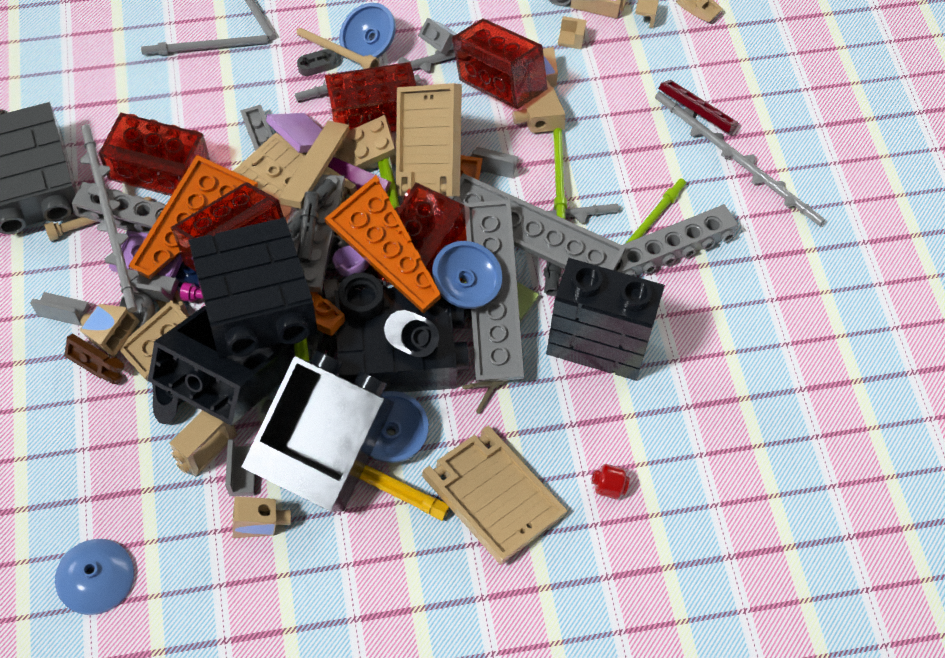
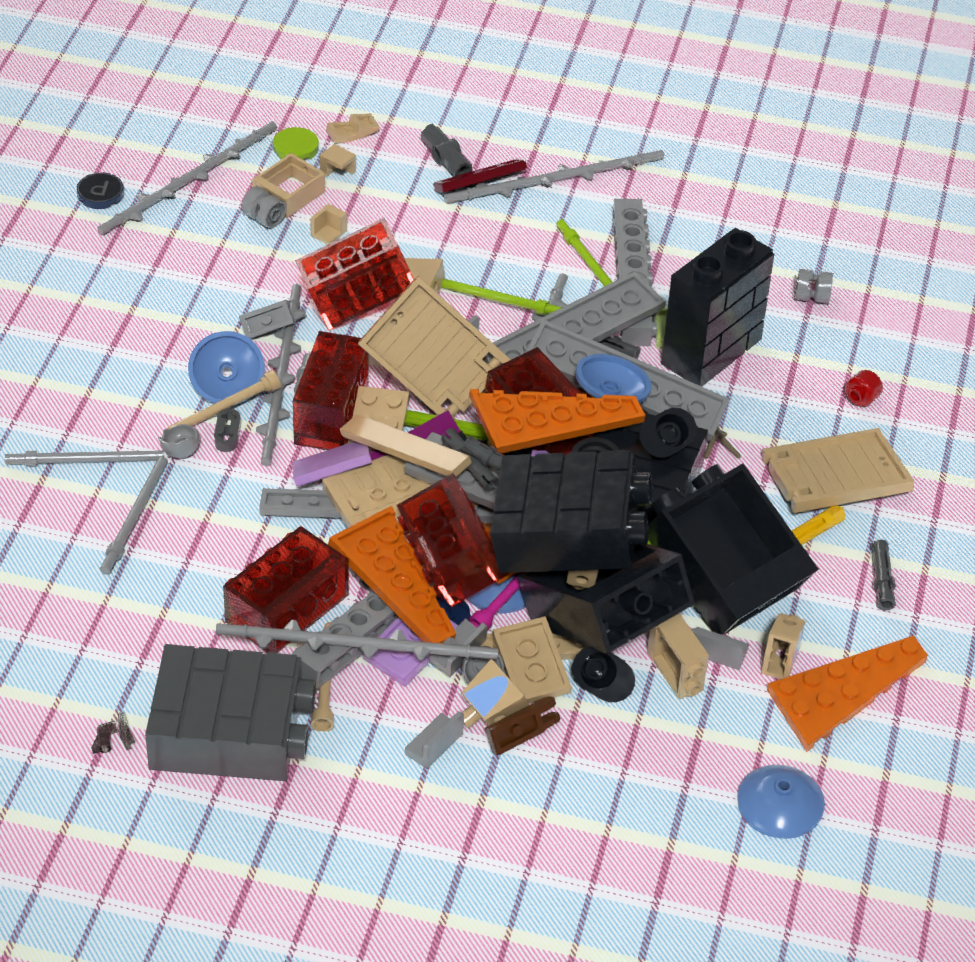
camera: 65 degrees left, 15 degrees down
(233, 580) = (838, 691): none -> orange wing
(285, 38) = (179, 440): none -> light grey hair
(357, 584) = (884, 582): none -> dark grey pin
(712, 72) = (445, 150): none -> dark grey piece
(719, 394) = (822, 286): none -> light grey wheel

